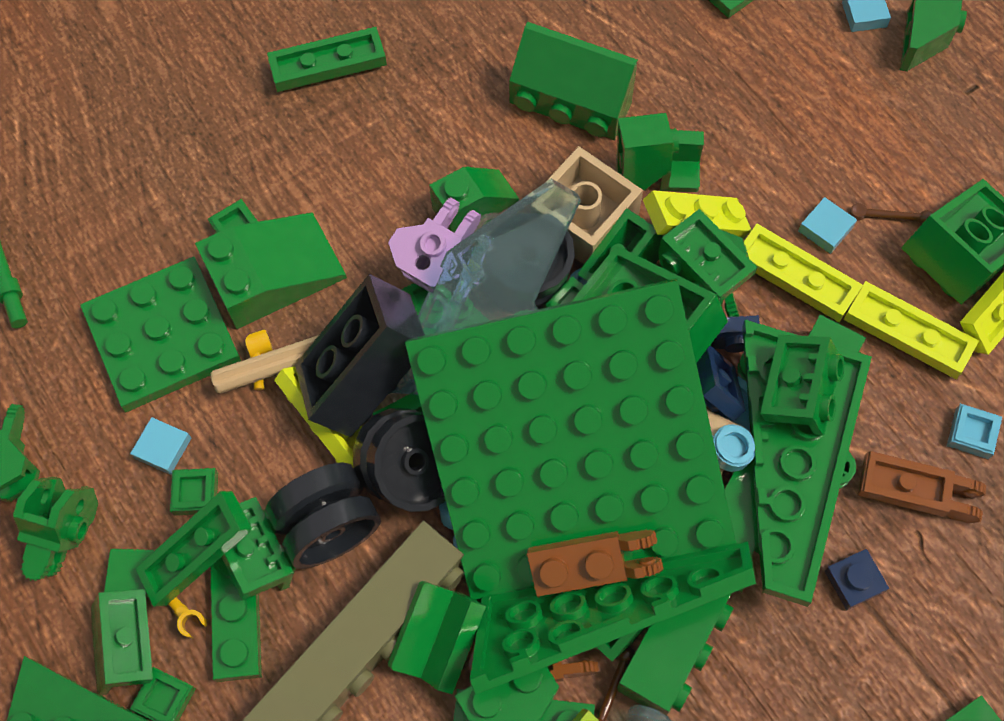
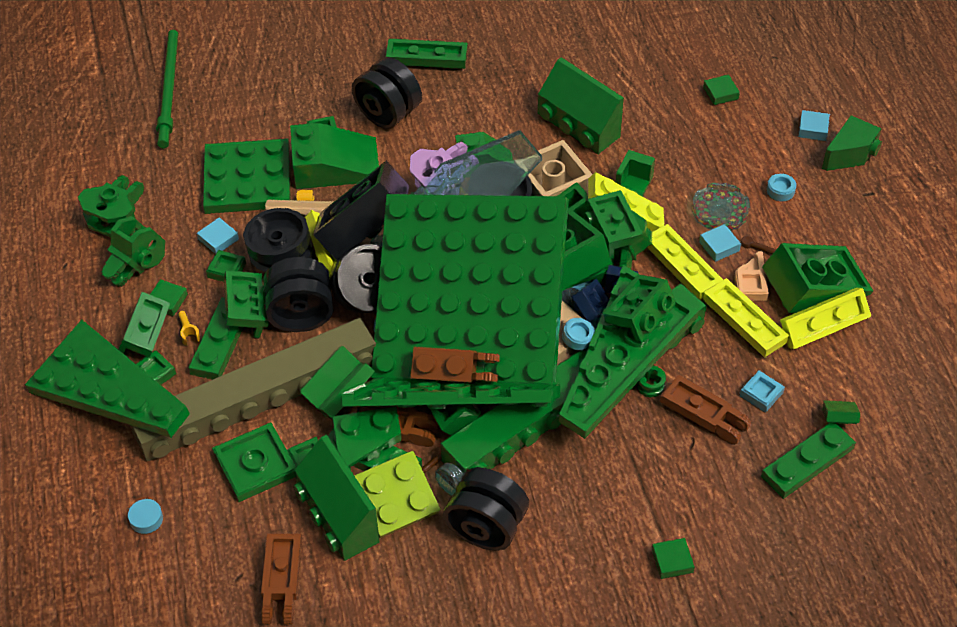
camera: 20 degrees right, 15 degrees down
(193, 548) = (209, 283): green plate -> none
(258, 439) = (276, 236): none -> black wheel
(306, 144) = (386, 92): none -> black wheel
(645, 148) = (607, 151): green slope -> none
(804, 170) = (720, 205): none -> clear light blue tile
(856, 579) = (634, 449): dark blue plate -> none
(866, 115) = (781, 187): none -> medium azure tile
(889, 265) = (752, 279): none -> light nougat tile

